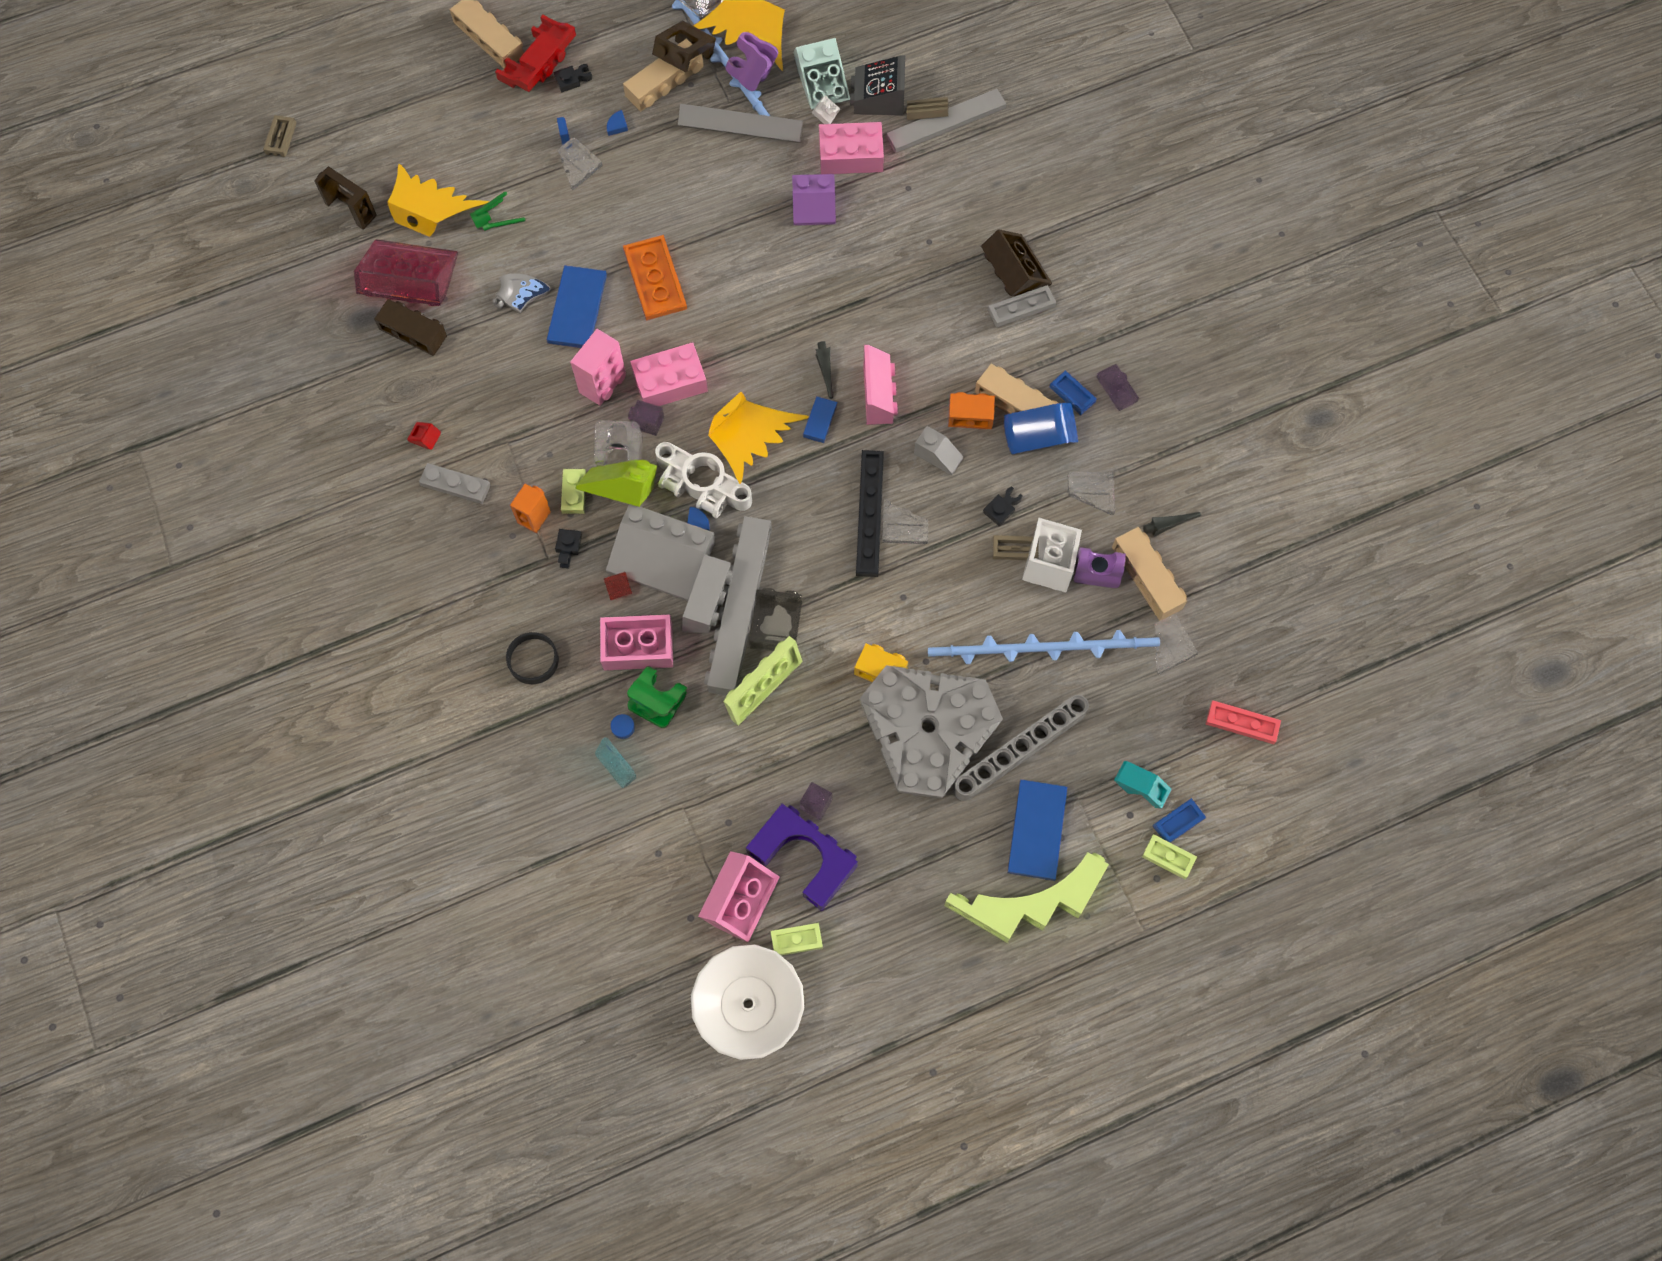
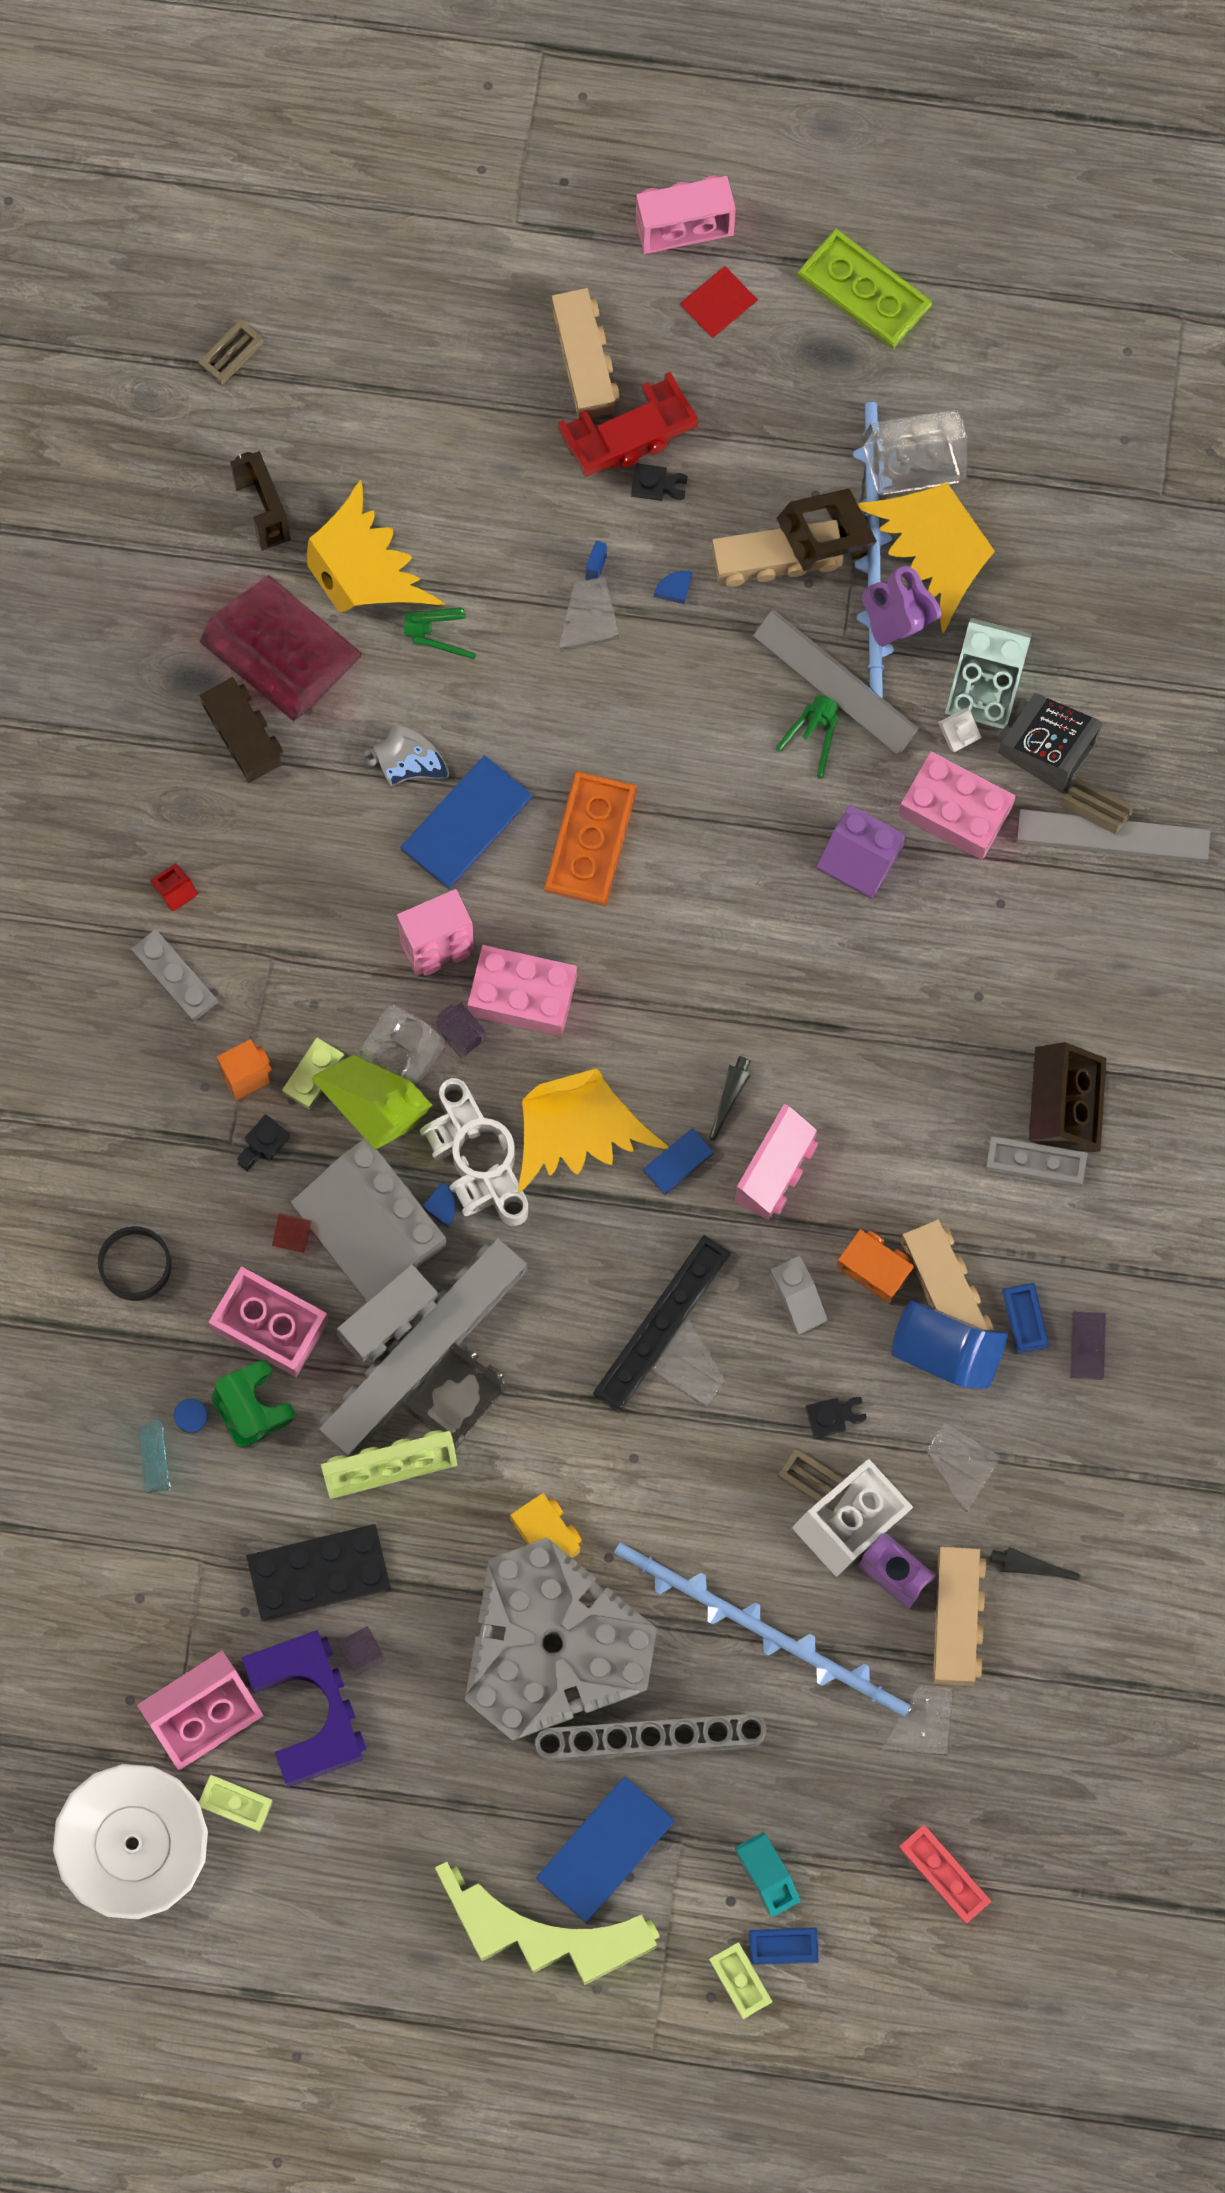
camera: 30 degrees right, 5 degrees up
(743, 145) = (819, 714): none -> green plant
(759, 772) = (318, 1572): none -> black plate

